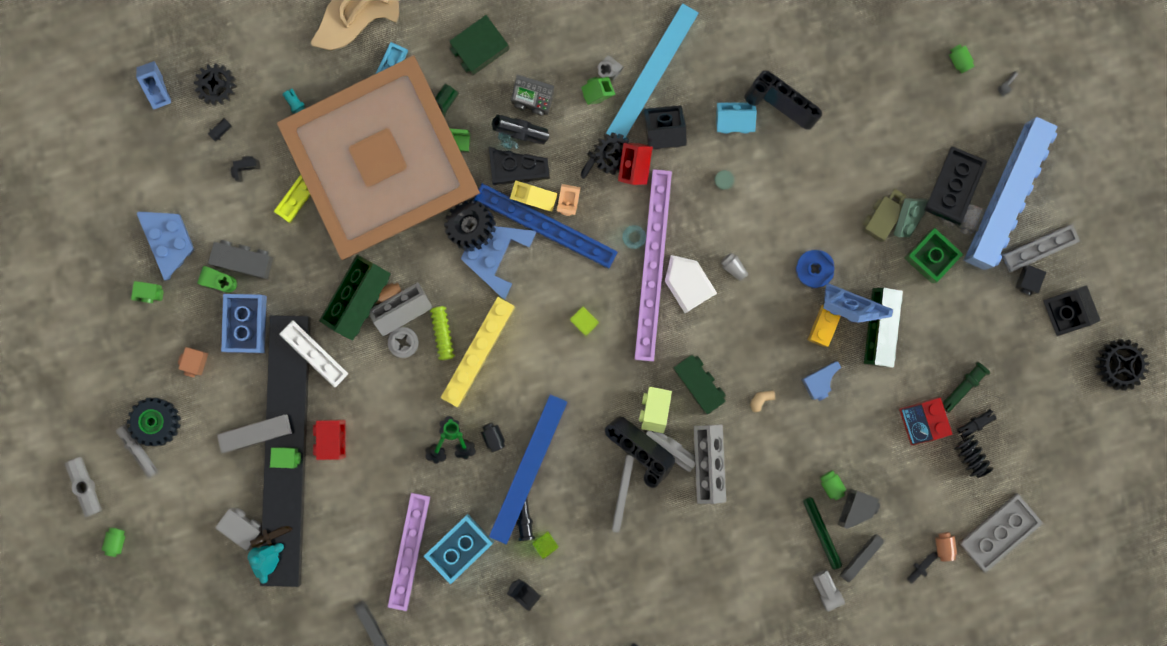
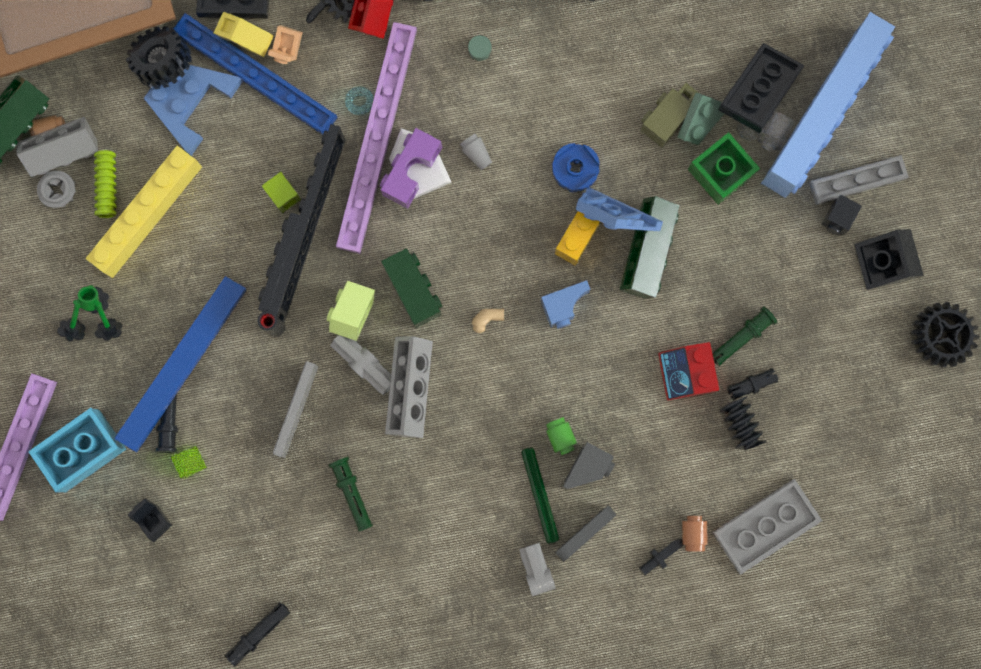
camera: 10 degrees right, 5 degrees down
(493, 437) = (145, 318): black brick -> none
(604, 354) = (297, 237): none -> black hinge
(643, 449) = (328, 357): black beam -> none
(671, 544) = (342, 483): none -> dark green pin
(690, 272) = (418, 149): none -> medium lavender arch

